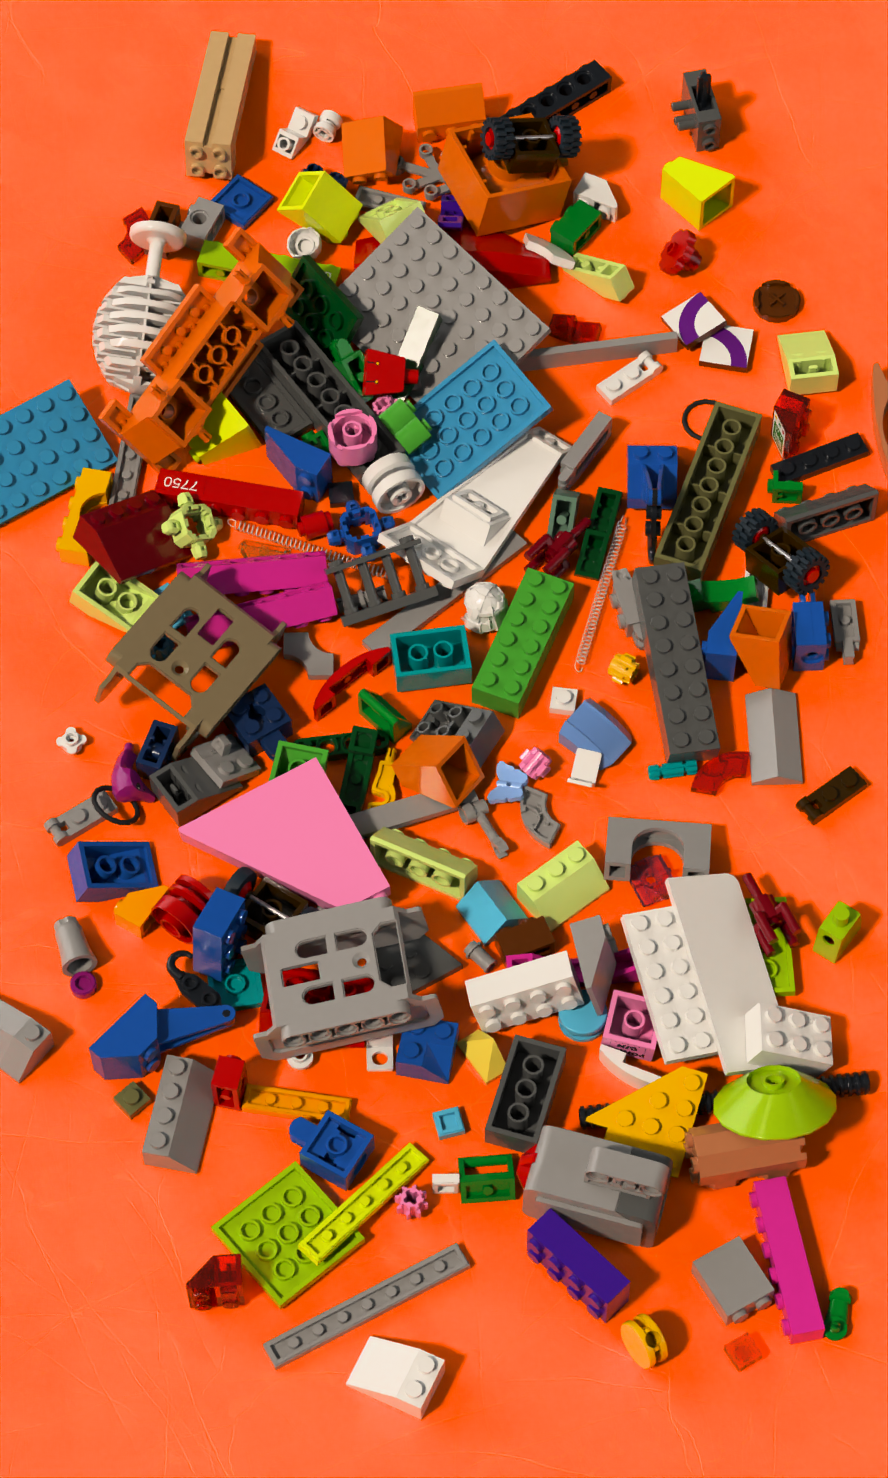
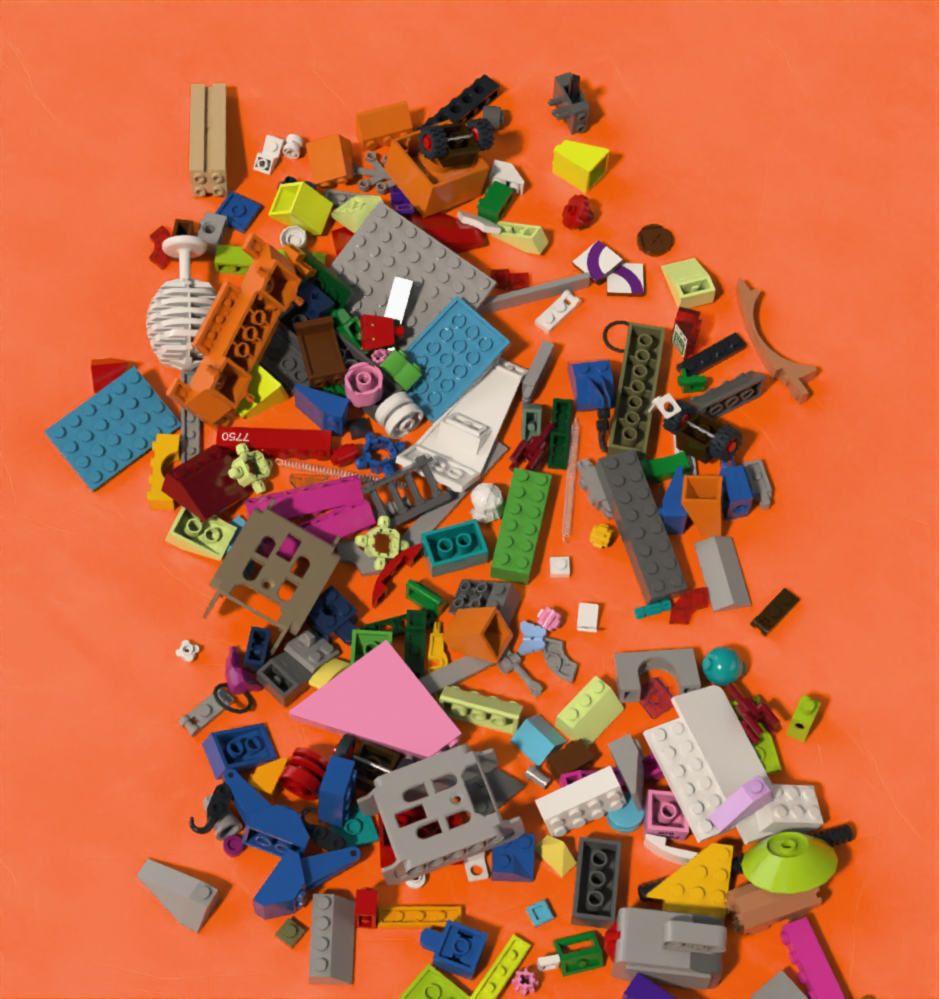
camera: 15 degrees left, 0 degrees up
(34, 381) = (106, 371): none -> red slope
(123, 964) = (267, 826): none -> blue slope
(237, 789) = (328, 672): none -> light yellow slope
(297, 266) = (297, 257): none -> orange slope
(307, 389) = (320, 352): none -> reddish brown panel
(310, 327) = (315, 302): none -> dark blue brick
(315, 633) = (368, 541): none -> yellowish green piece
(593, 118) = (493, 115): none -> dark grey piece
(595, 730) = (589, 587): medium blue slope -> none
(725, 1022) = (741, 804): none -> lavender slope
(732, 507) = (658, 403): none -> white bracket
(746, 851) = (723, 666): none -> teal brick

